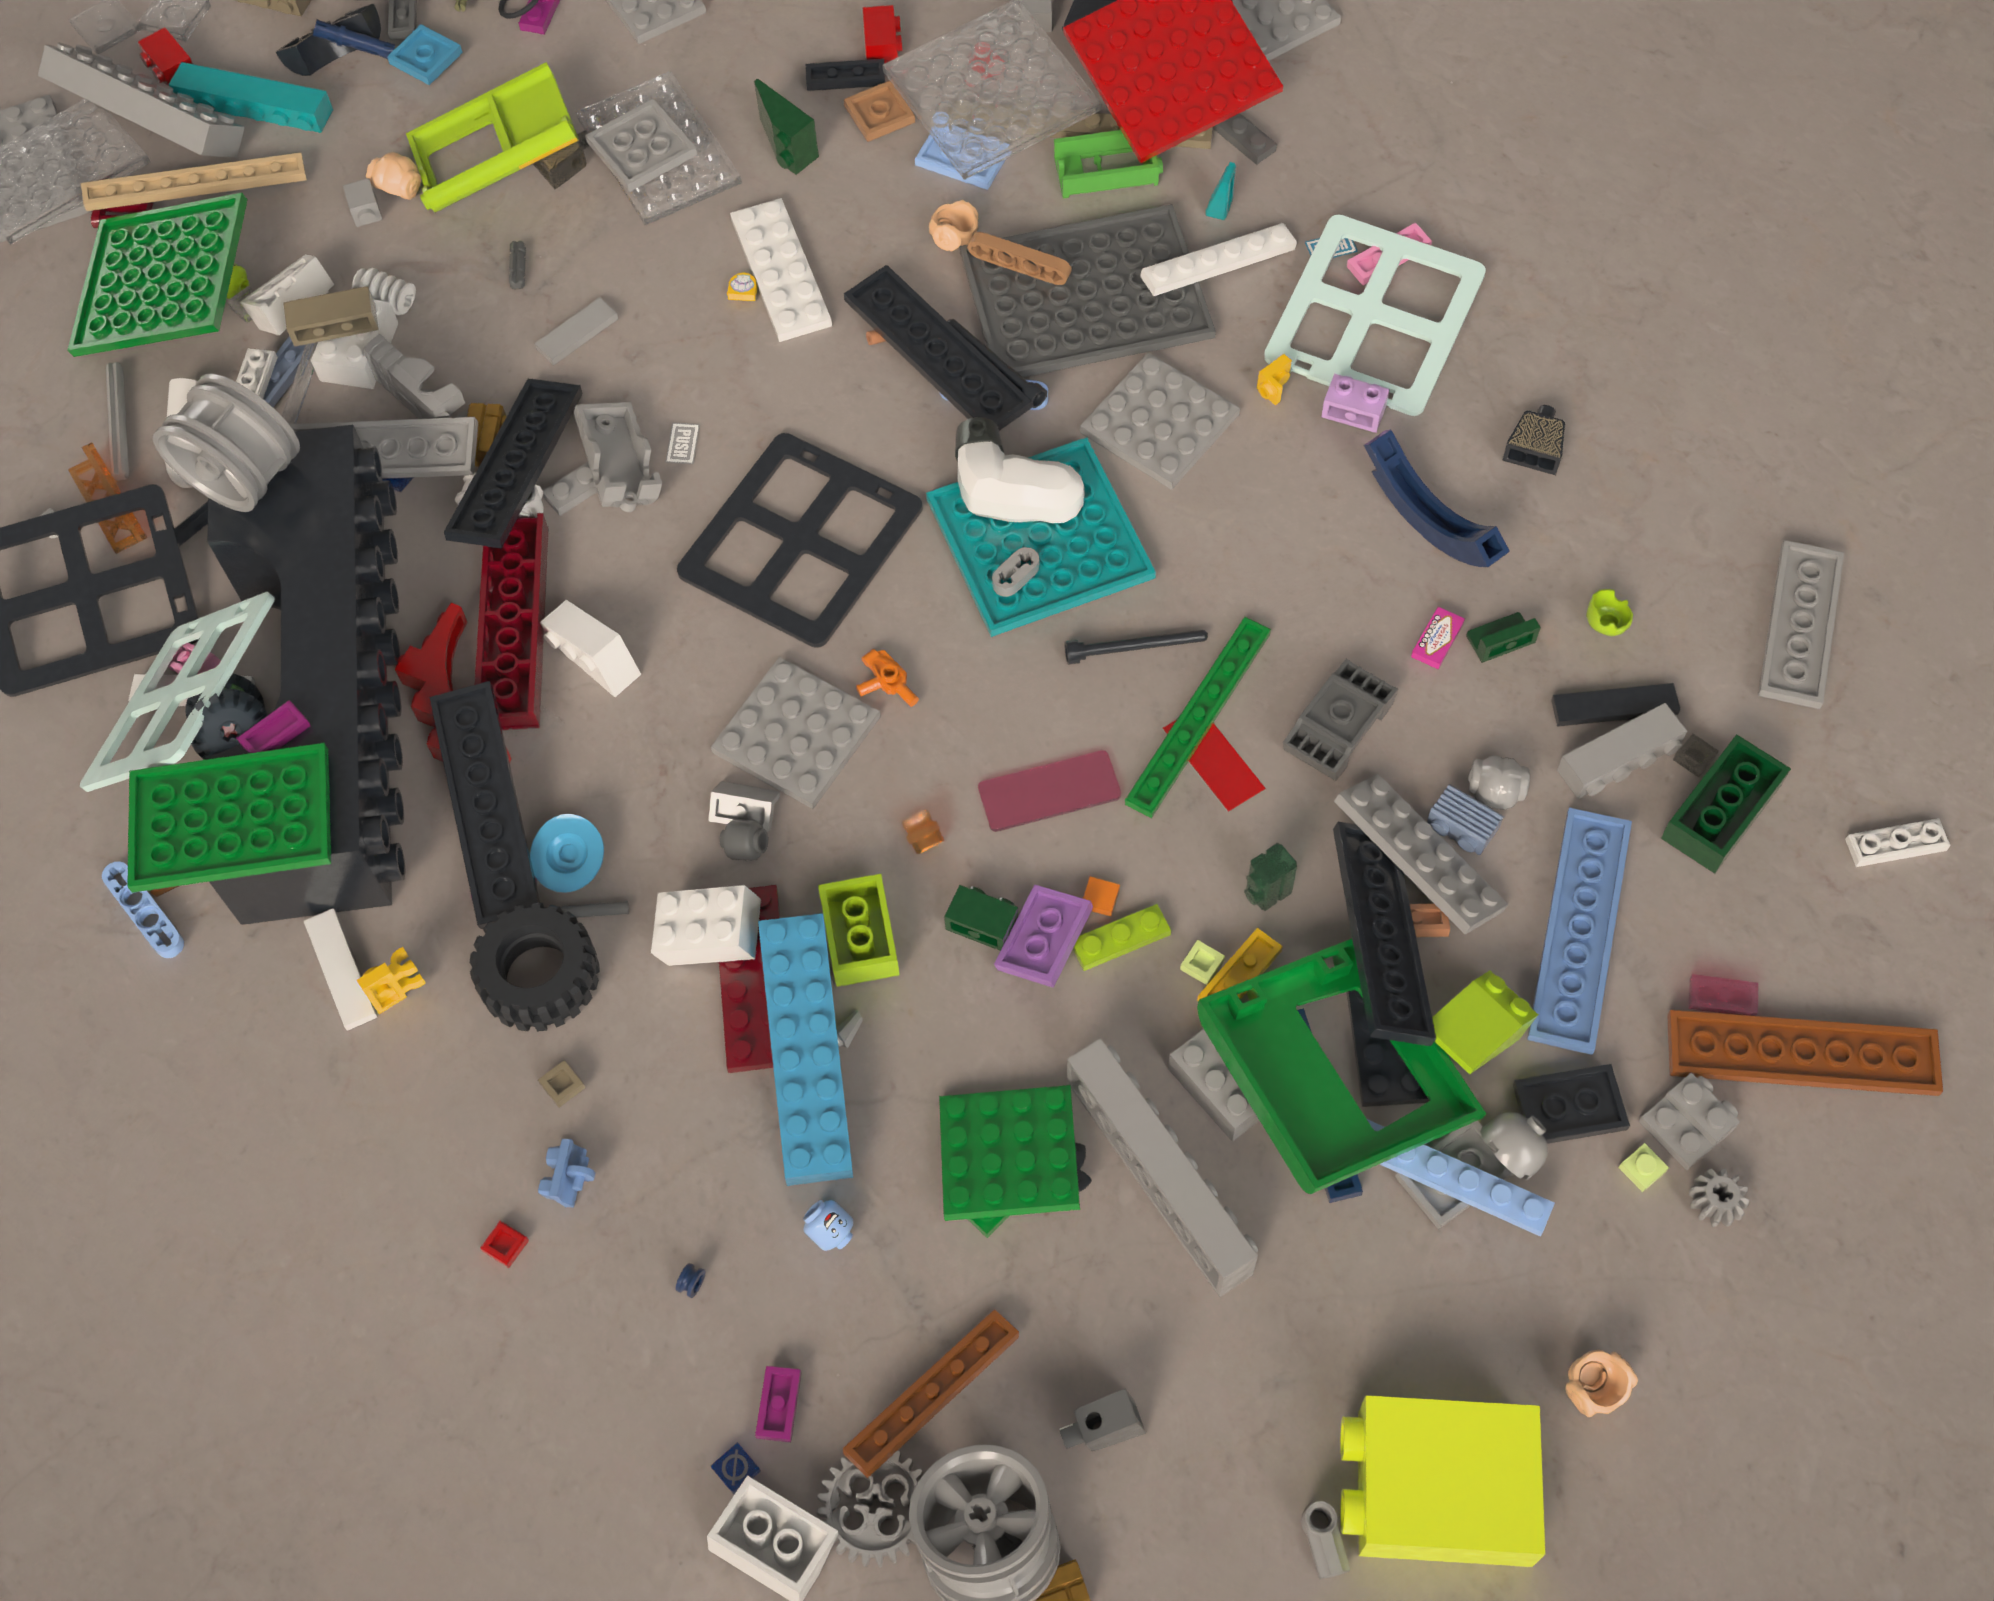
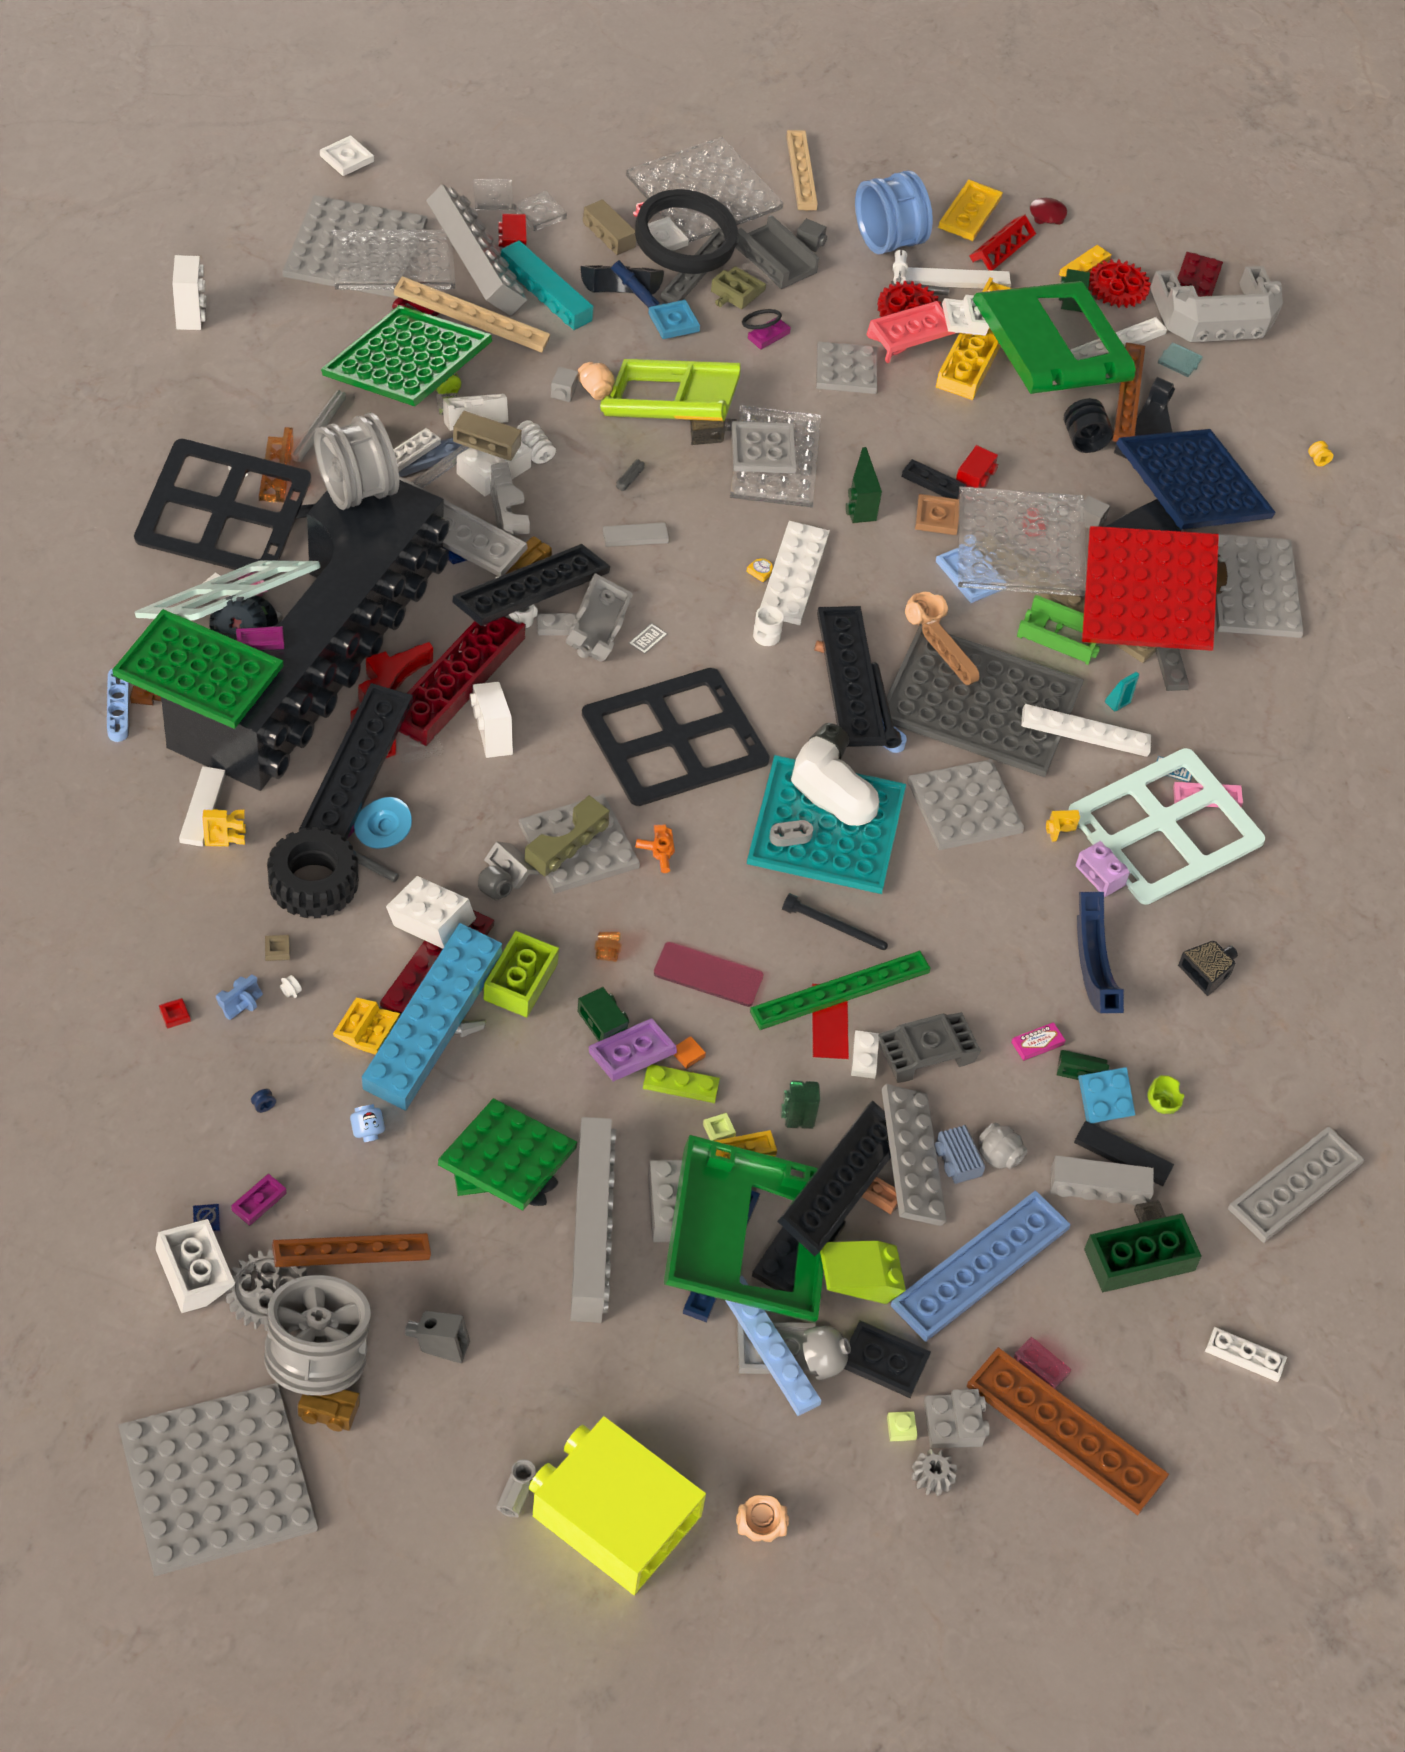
camera: 25 degrees right, 10 degrees down
(612, 1120) = (290, 986): none -> white plate
(735, 1107) = (366, 1025): none -> yellow slope
(778, 767) = (548, 852): none -> olive arch
(804, 347) = (768, 625): none -> white wheel
(1280, 772) = (865, 1054): none -> white plate
(1555, 652) = (1106, 1095): none -> dark azure plate

